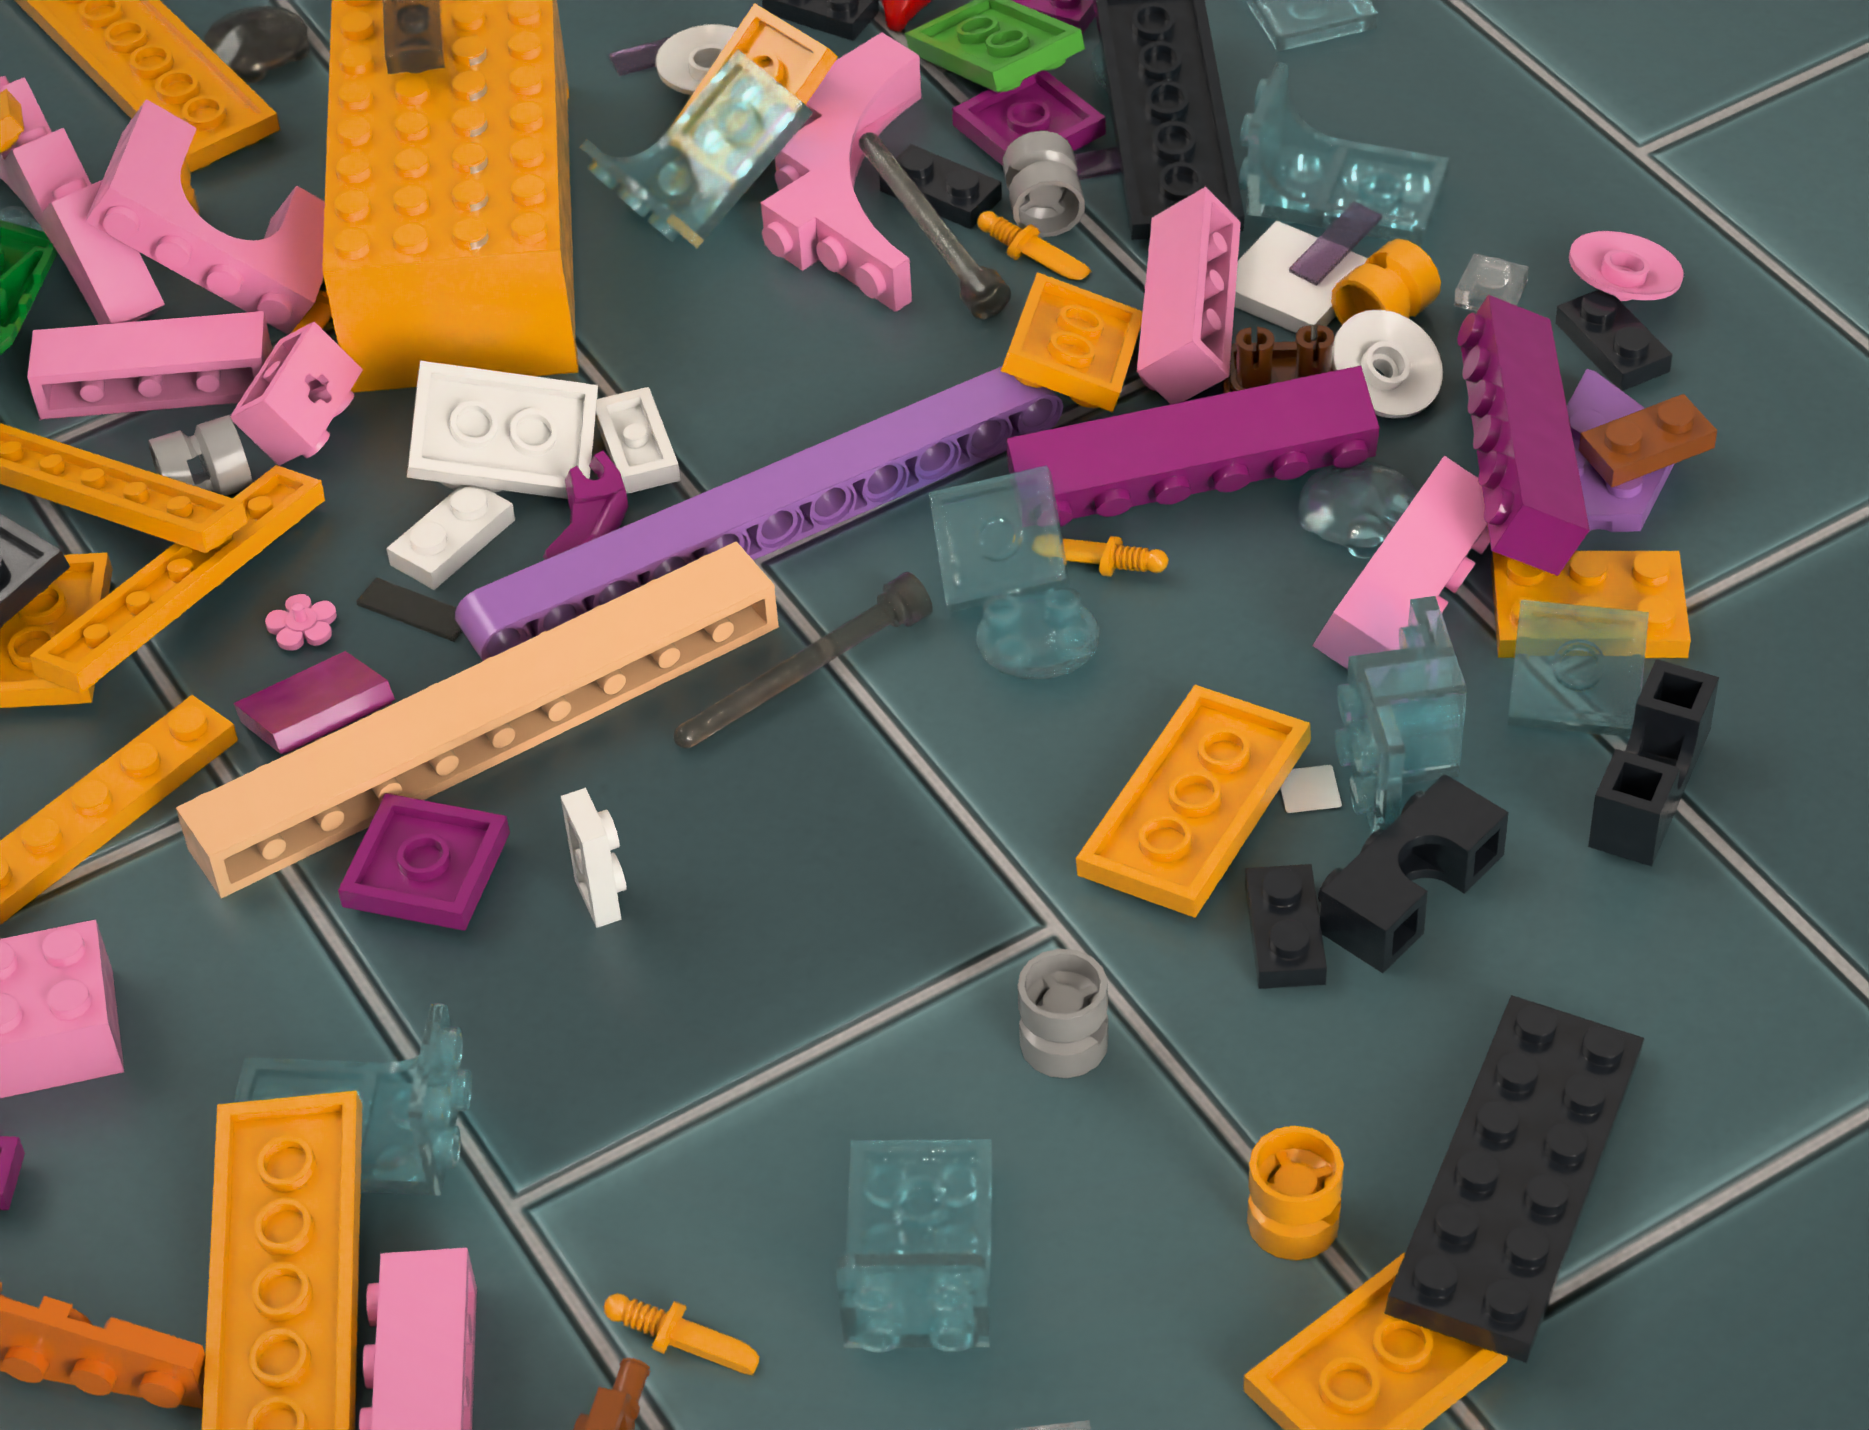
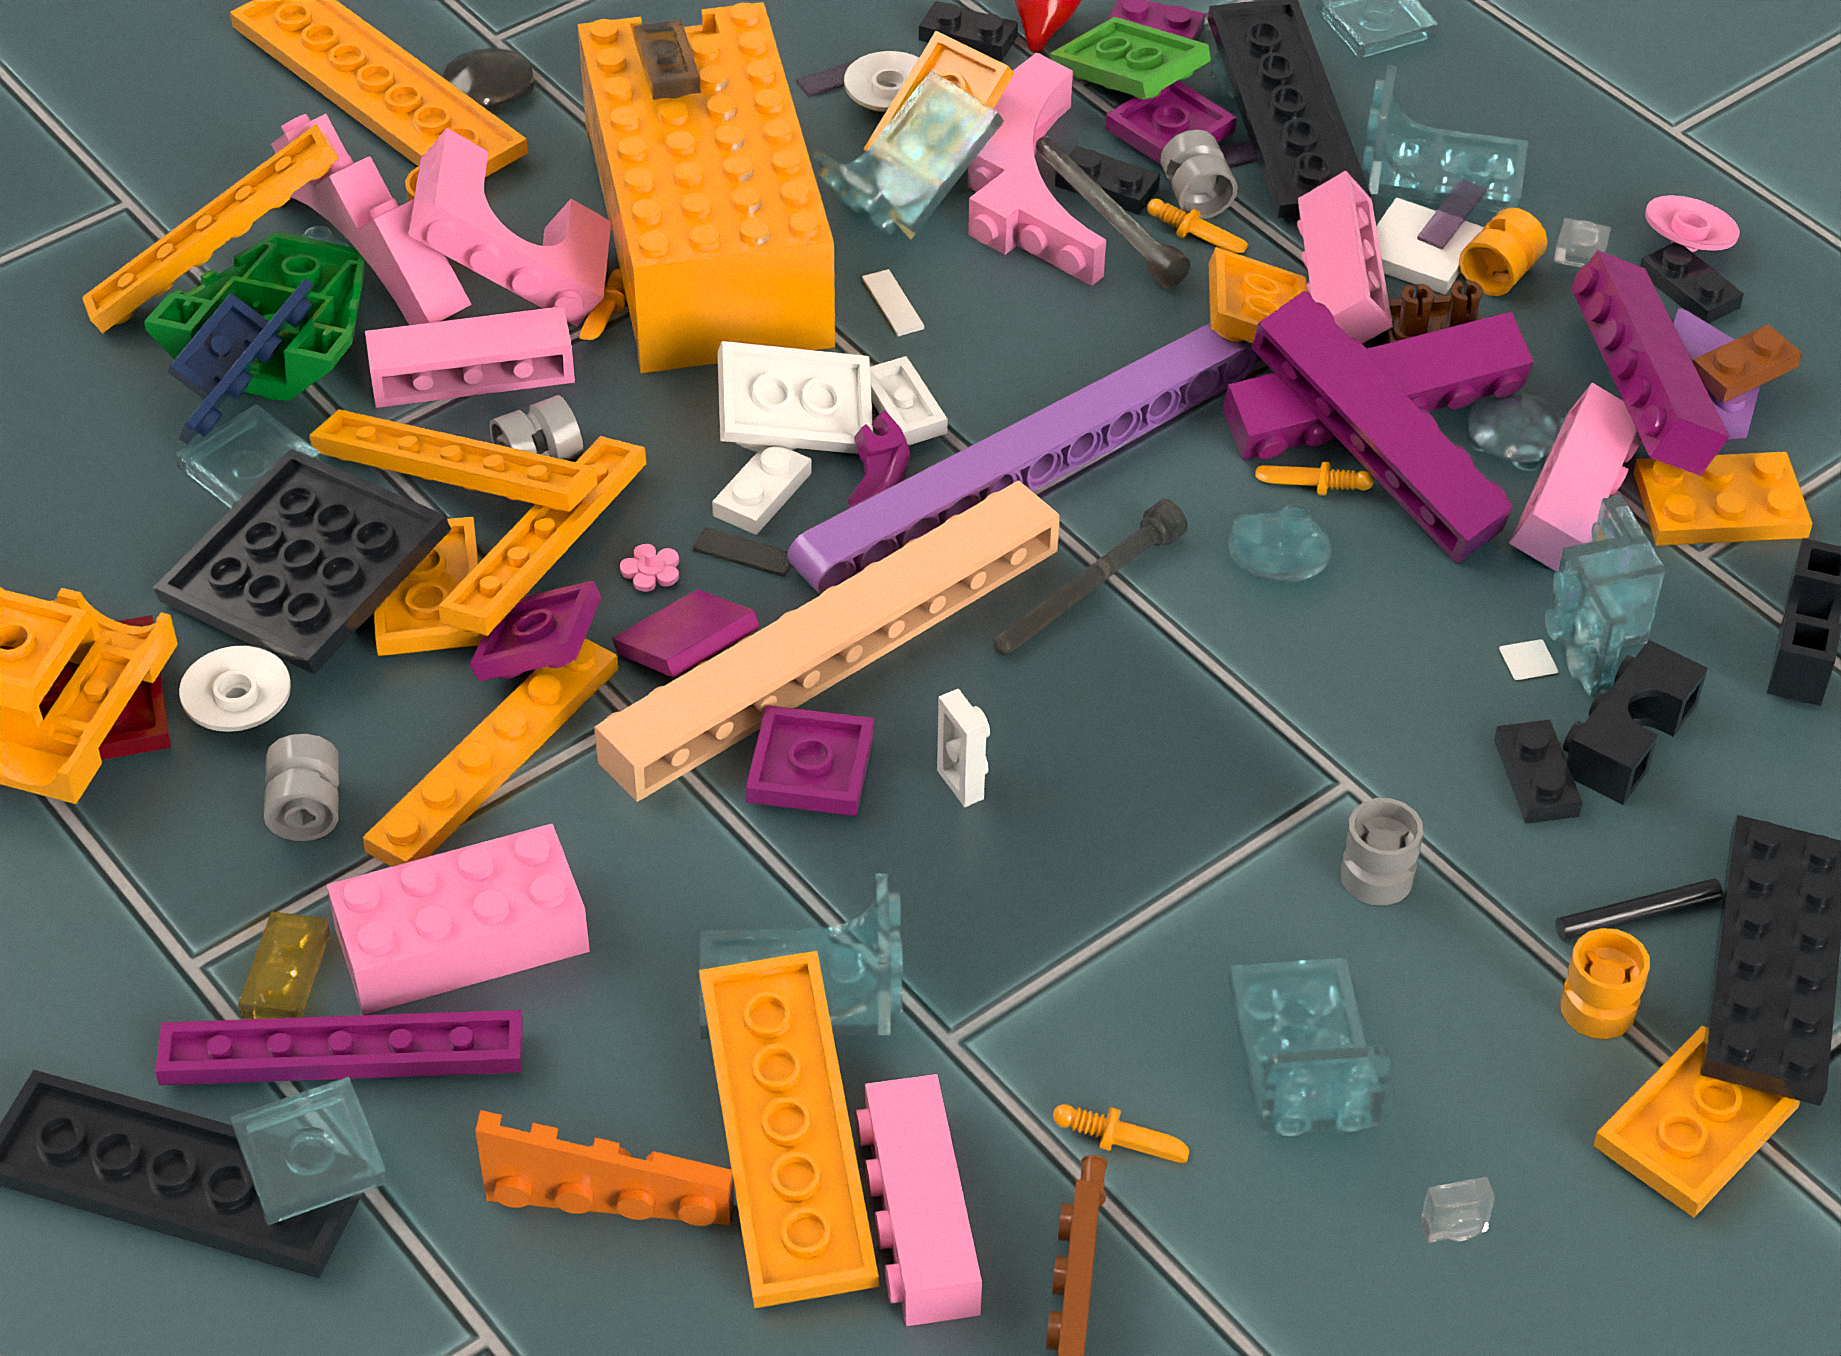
camera: 10 degrees left, 0 degrees up
(143, 693) = (538, 633): none -> magenta plate
(297, 395) = (608, 375): bright pink brick -> none
(657, 322) = (893, 302): none -> white window
(999, 538) = (1235, 467): clear light blue tile -> none
(1178, 498) = (1382, 426): none -> magenta brick
(1193, 800) = (1442, 674): light orange plate -> none
(1370, 1102) = (1639, 908): none -> black bar
(1400, 352) = (1528, 299): white dish -> none
(1577, 668) = (1729, 550): clear light blue tile -> none

